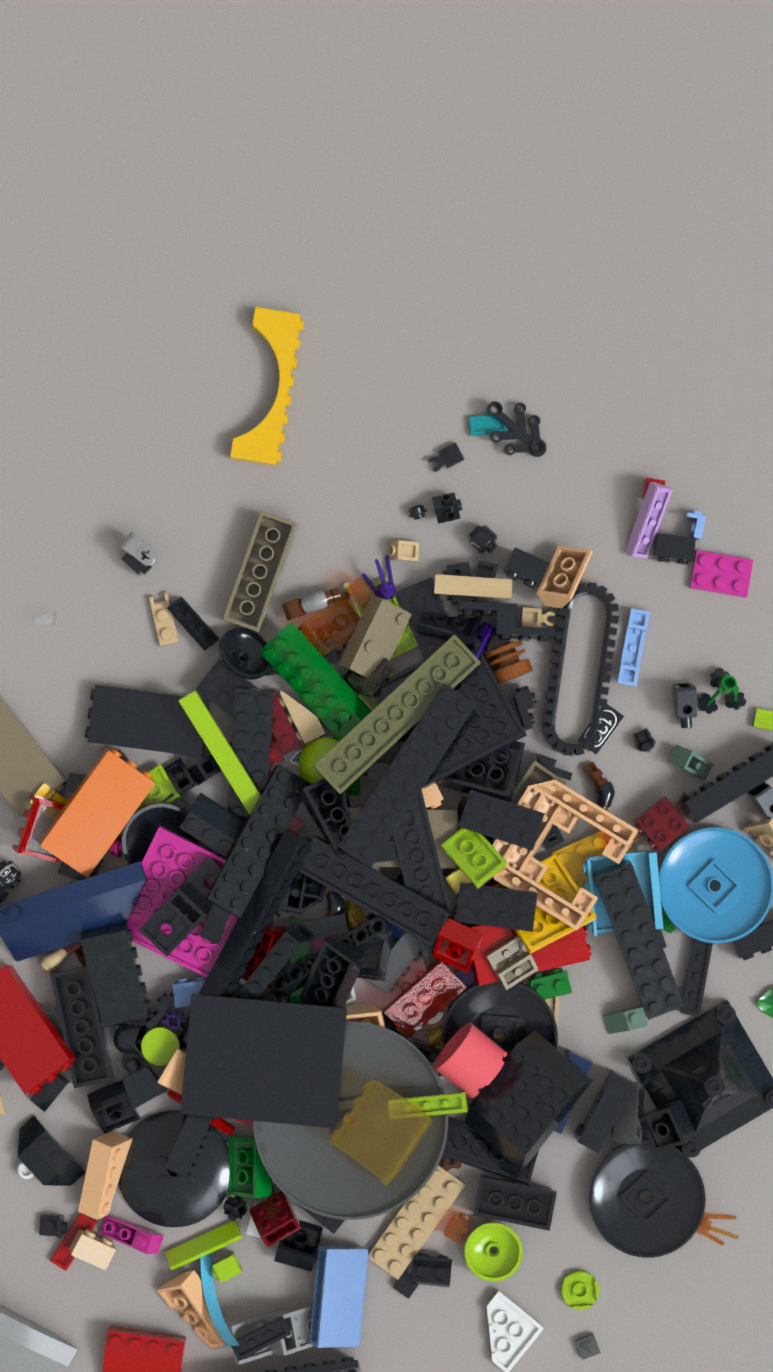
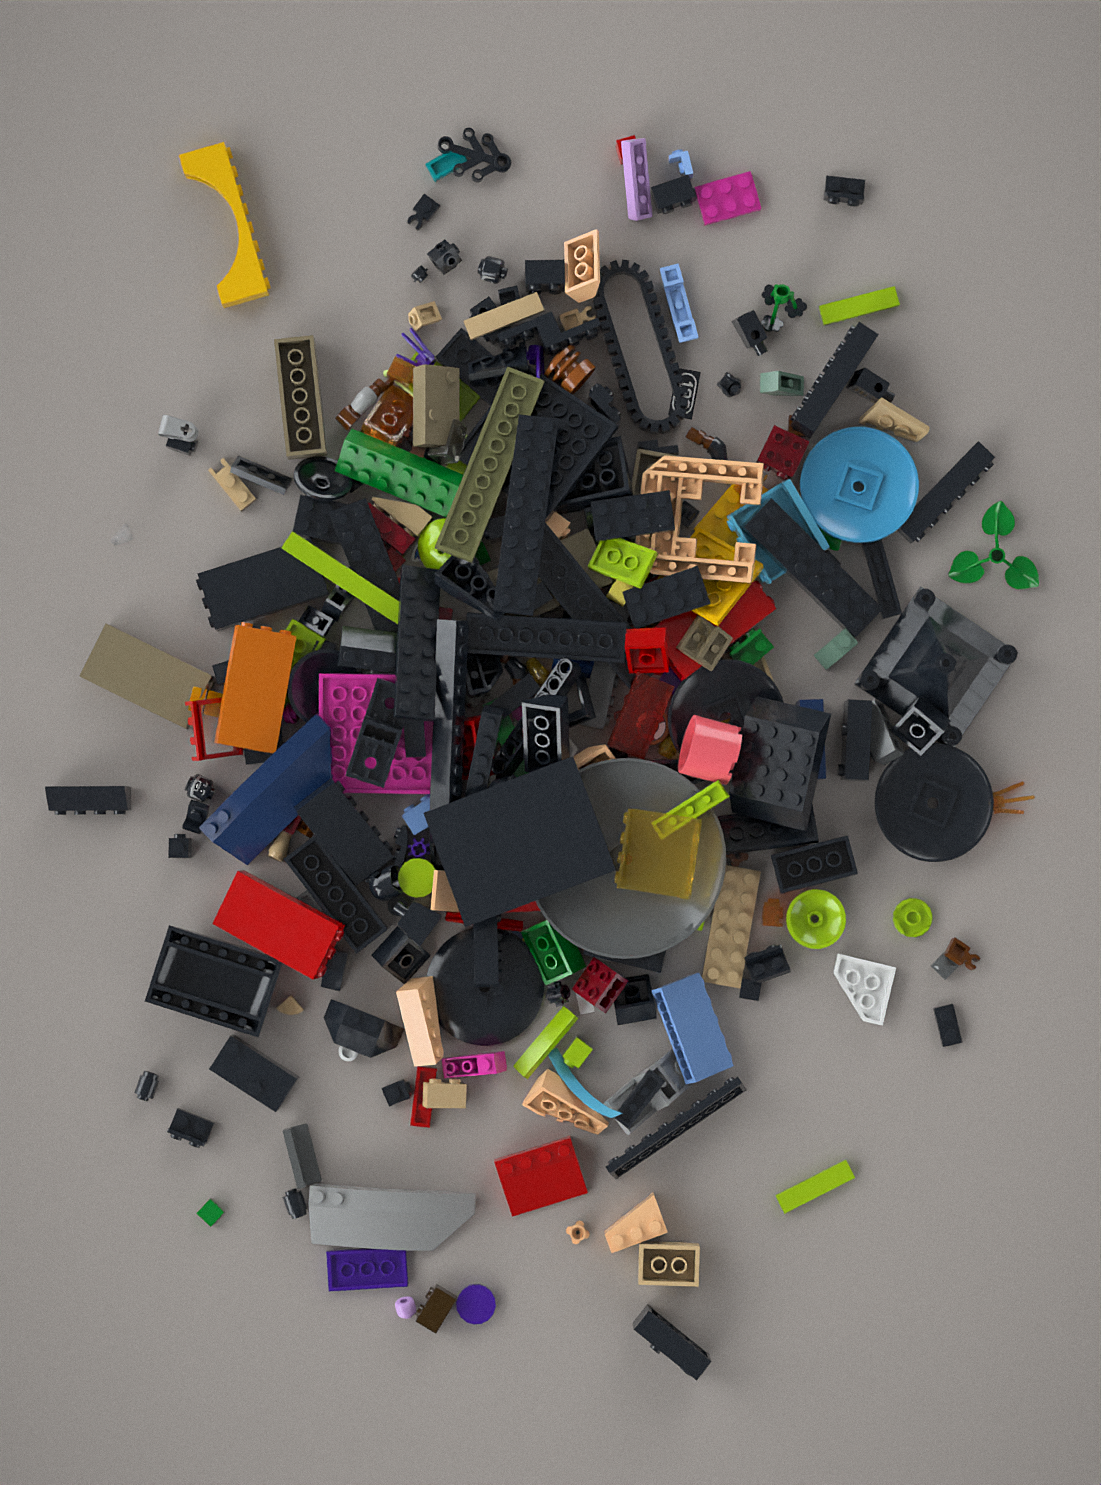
camera: 25 degrees left, 0 degrees up
(606, 1342) = (959, 953): none -> reddish brown plate

